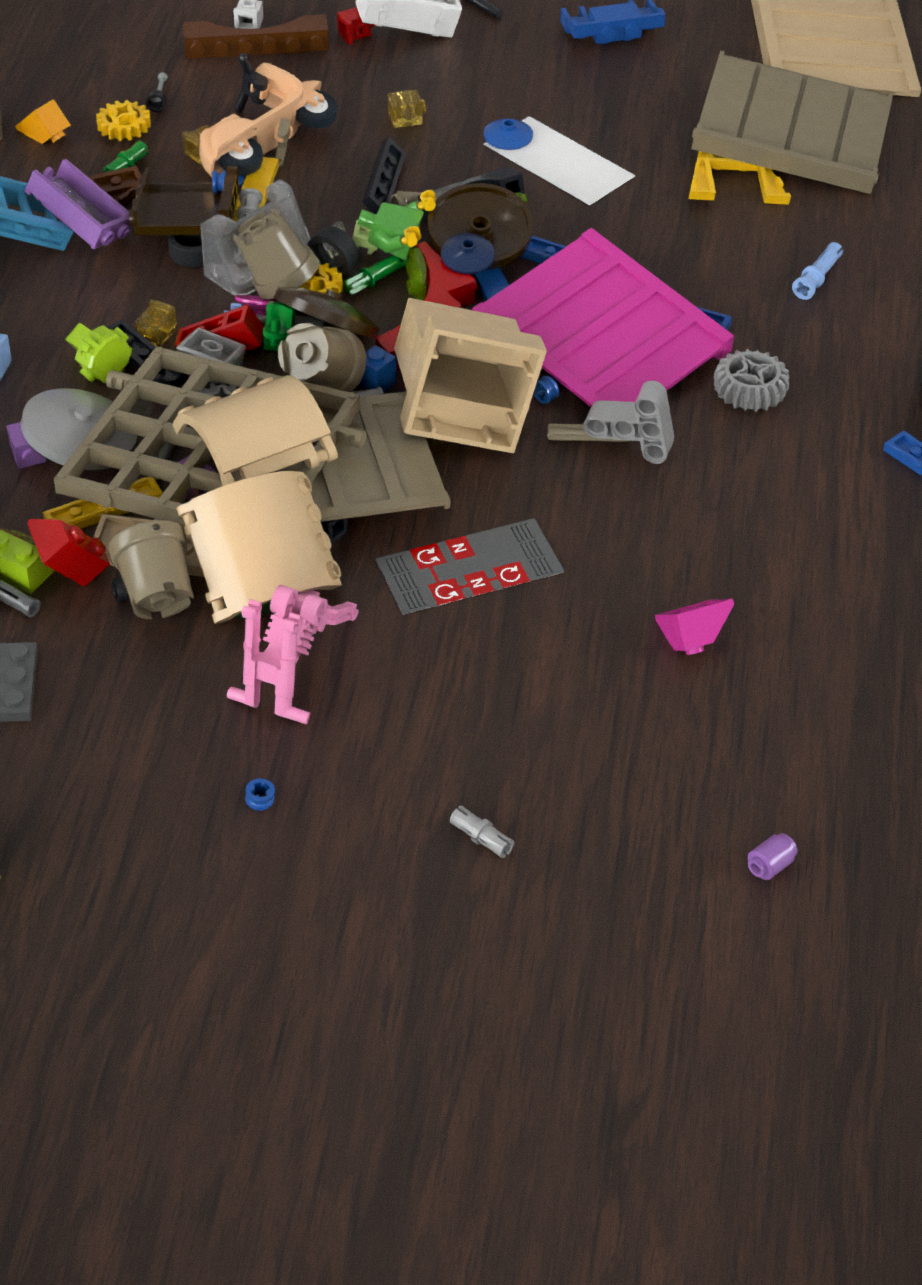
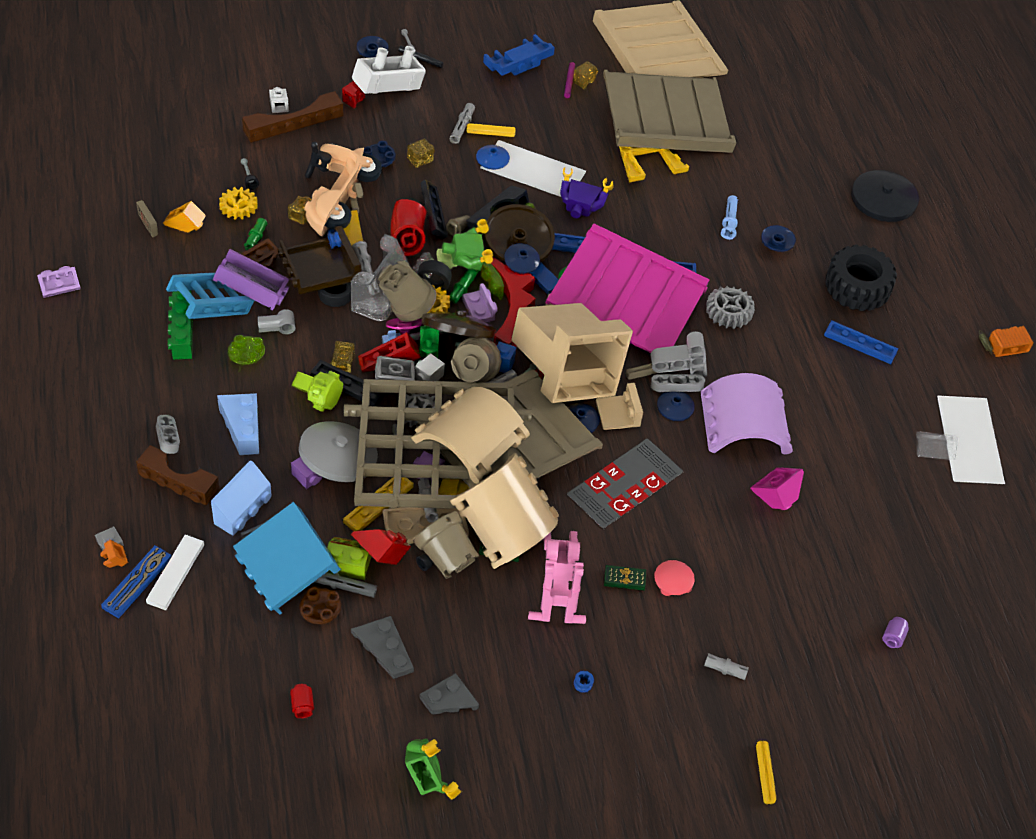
camera: 25 degrees left, 5 degrees up
(33, 288) = (246, 349): none -> clear neon green dish
(58, 761) = (448, 696): none -> dark grey wing
(99, 266) = (282, 322): none -> light grey piece
(263, 358) = (429, 369): none -> white brick
(330, 187) = (408, 225): none -> red brick
(351, 100) = (382, 152): none -> dark blue dish
(382, 303) = (480, 304): none -> lavender bracket
(396, 681) = (625, 577): none -> dark green tile
(456, 471) = (589, 417): none -> dark blue dish
(463, 984) = (766, 772): none -> yellow axle
(469, 700) = (674, 578): none -> coral dish
(492, 80) = (464, 118): none -> light grey pin
(509, 473) = (620, 411): none -> tan bracket
(523, 101) = (490, 130): none -> yellow axle
(600, 487) = (675, 405): none -> dark blue dish
(605, 202) = (582, 197): none -> dark purple torso
(617, 457) = (666, 383): none -> light grey beam
(673, 62) = (569, 81): none -> magenta bar
(698, 58) = (585, 74): none -> clear yellow brick
(703, 506) = (744, 408): none -> lavender hinge
(876, 309) = (778, 238): none -> dark blue dish

